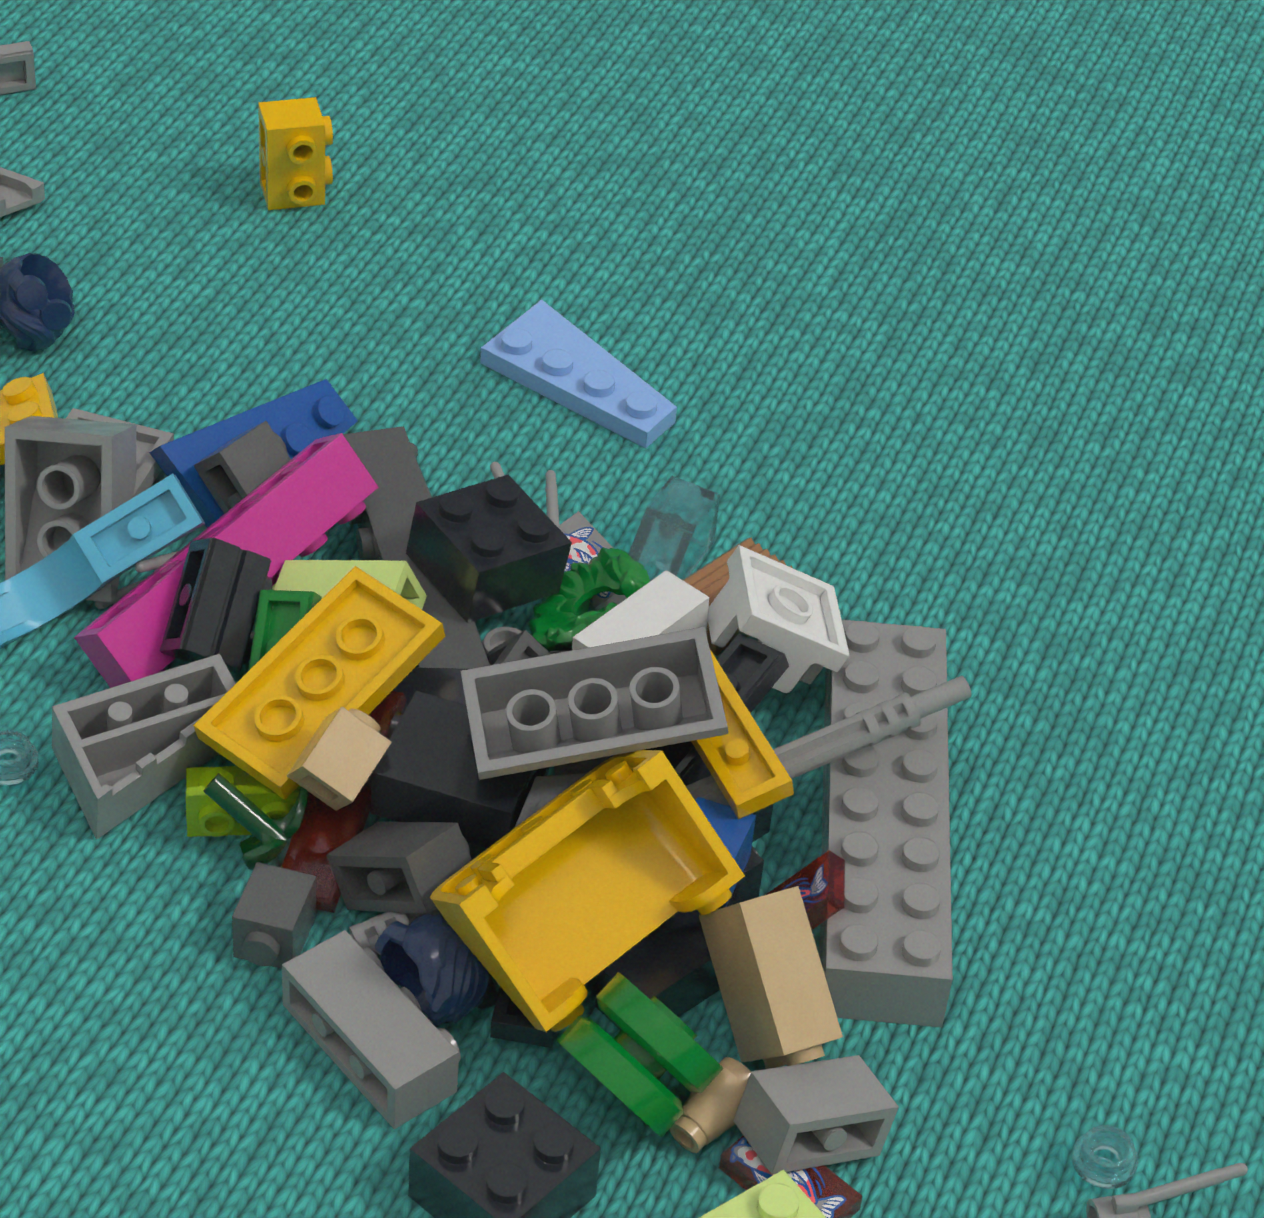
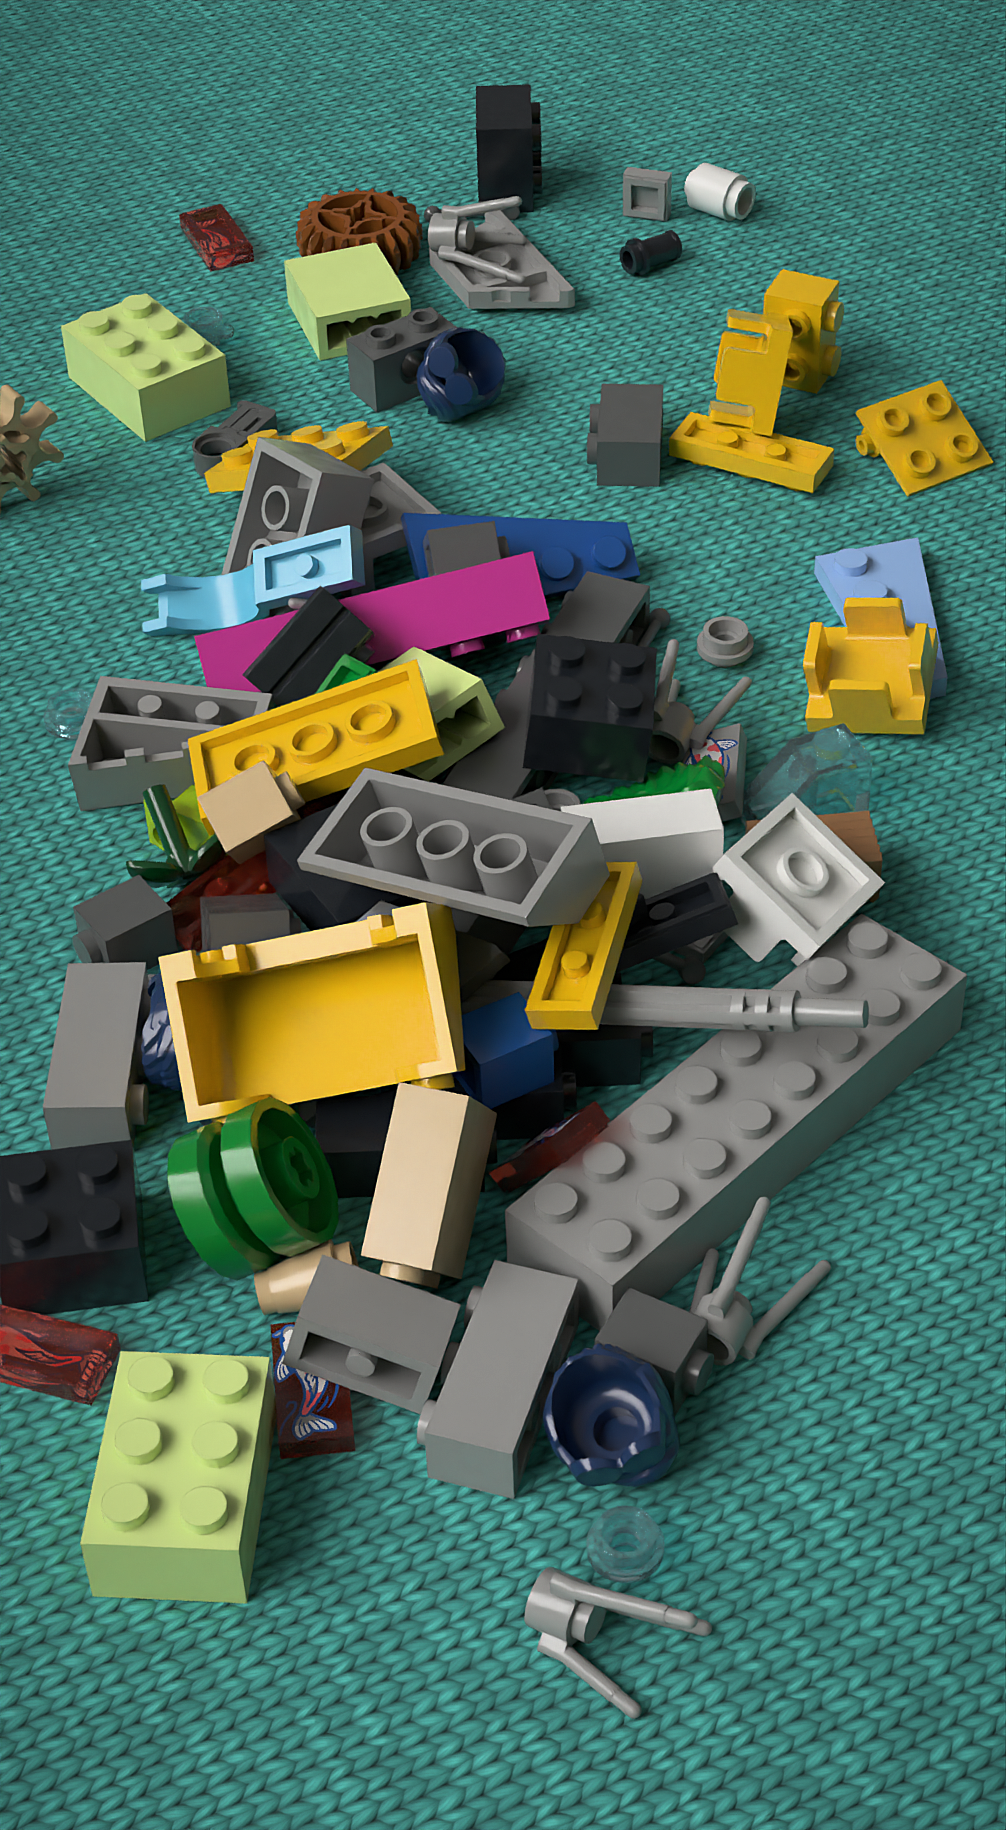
camera: 45 degrees right, 0 degrees up
(61, 129) = (640, 256): none -> black pin
(71, 45) = (719, 192): none -> white brick
(228, 300) = (627, 435): none -> dark grey brick
(312, 196) = (751, 370): none -> yellow panel
(339, 277) = (734, 448): none -> yellow plate
(461, 212) = (921, 438): none -> yellow hinge
(482, 447) = (725, 642): none -> light grey plate
(633, 425) = (872, 671): none -> yellow panel
(941, 1121) = (499, 1378): none -> light grey brick
(996, 1016) = (664, 1337): none -> dark grey brick
(1013, 966) = (729, 1311): none -> light grey plant
(1028, 1073) = (611, 1418): none -> dark blue hair

